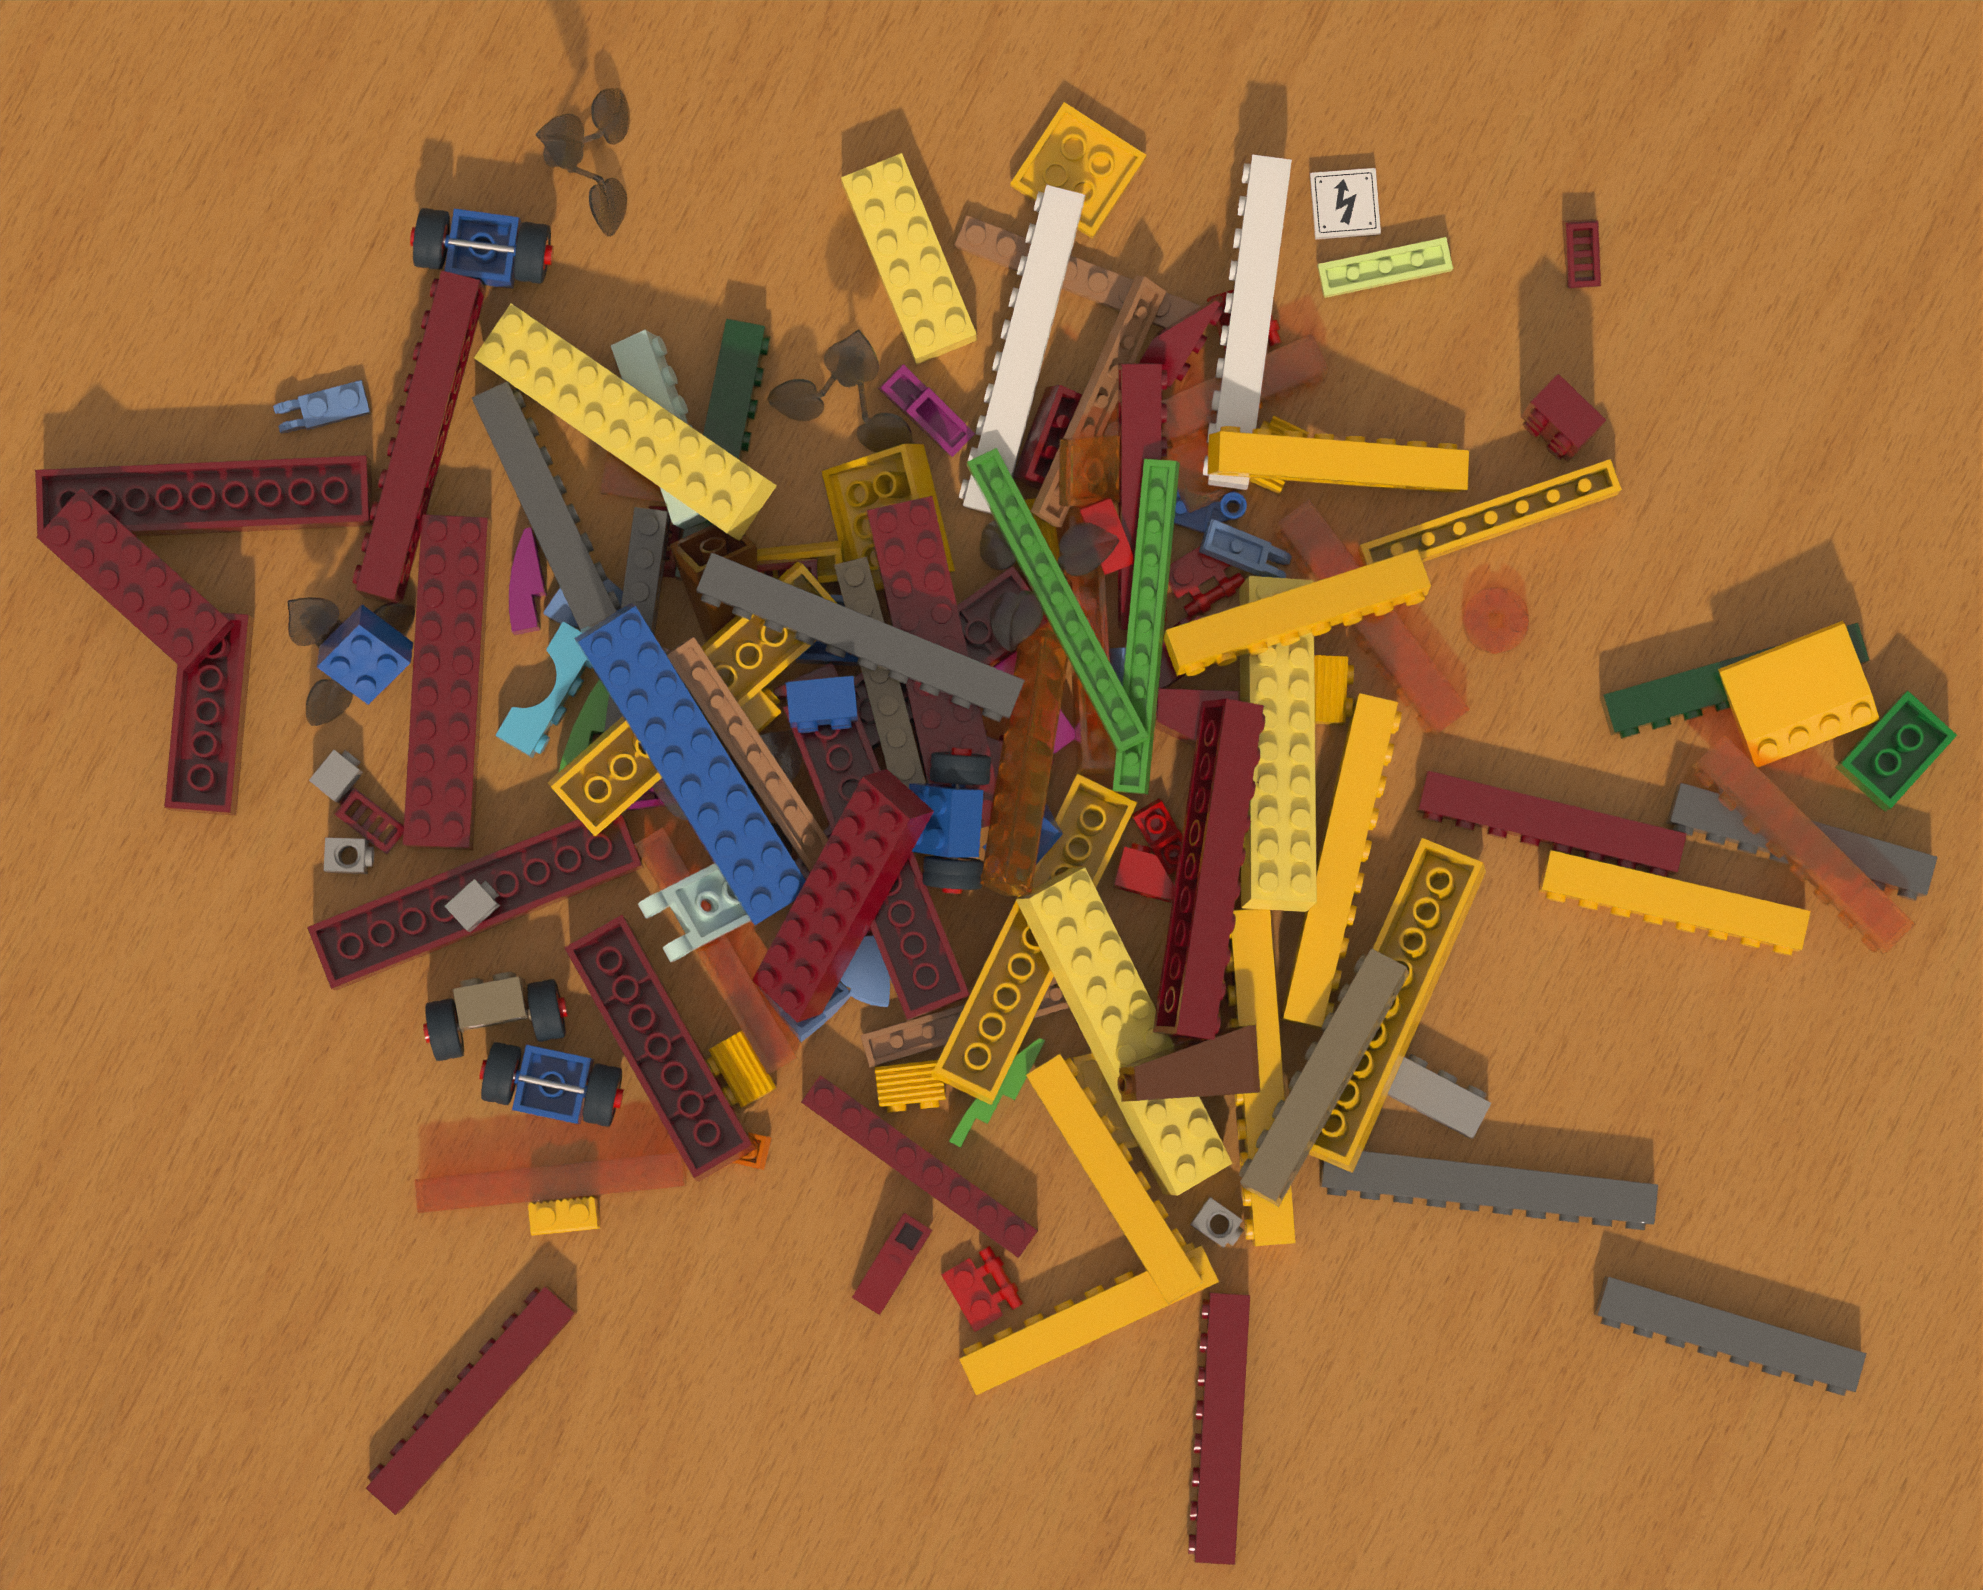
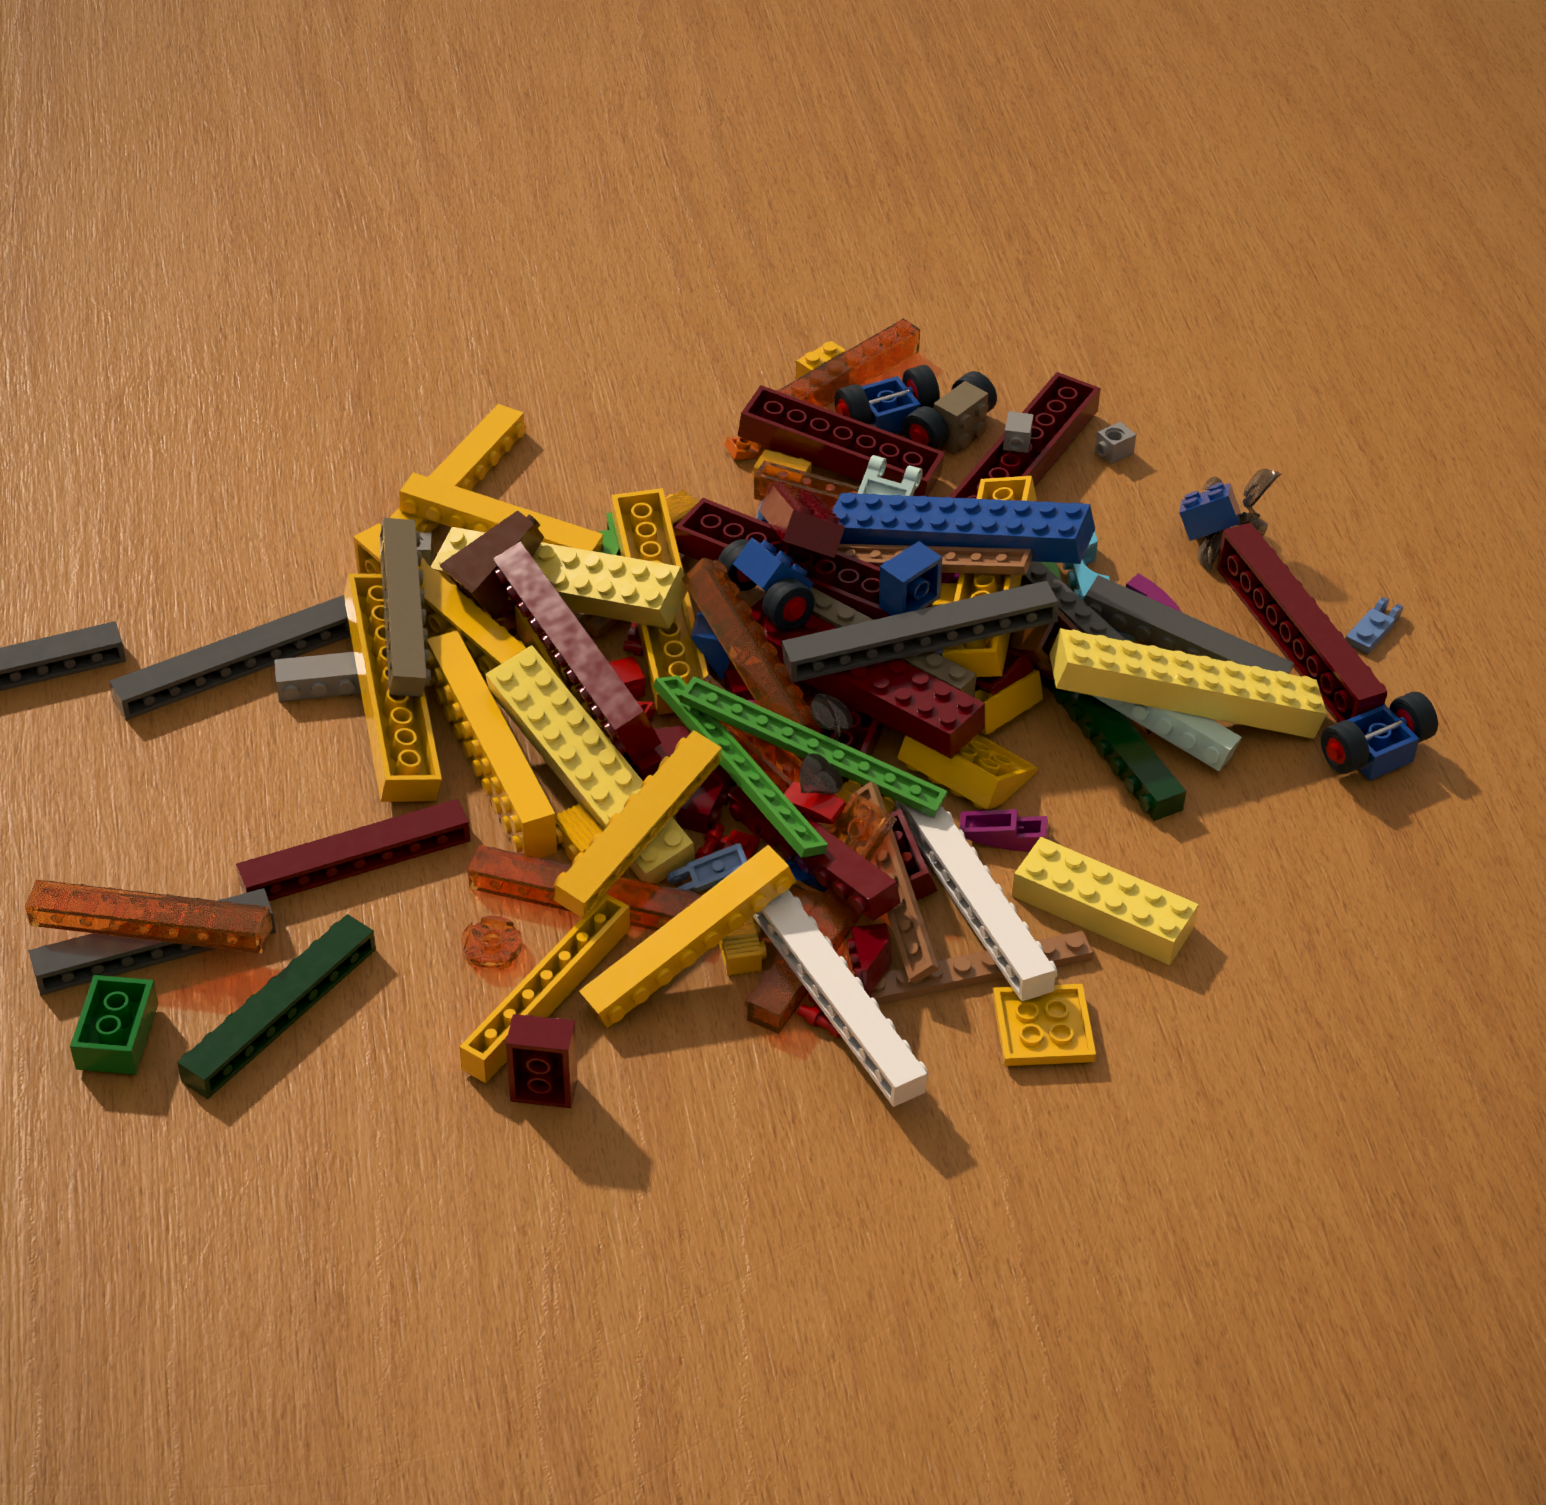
camera: 140 degrees right, 40 degrees down
(135, 581) = (1376, 460): dark red brick -> none
(210, 726) = (1258, 443): dark red brick -> none
(218, 494) = (1391, 535): dark red brick -> none
(337, 775) = (1162, 470): light grey brick -> none
(349, 800) = (1130, 467): dark red slope -> none
(447, 682) = (1153, 542): dark red brick -> none
(470, 1400) = (793, 282): dark red brick -> none
(563, 149) = (1387, 859): clear smoke plant -> none
(851, 363) = (1078, 815): clear smoke plant -> none
(892, 1263) = (605, 444): dark red slope -> none
(919, 1166) = (597, 482): dark red brick -> none
(972, 1293) = (539, 459): red plate -> none
(1221, 1428) = (328, 467): dark red brick -> none
(1345, 203) = (830, 1126): white tile -> none
(1385, 267) = (762, 1101): yellowish green plate -> none
(1594, 252) = (631, 1220): dark red slope -> none
(1674, 901) = (216, 859): yellow brick -> none
(1798, 694) = (215, 1003): yellow slope -> none

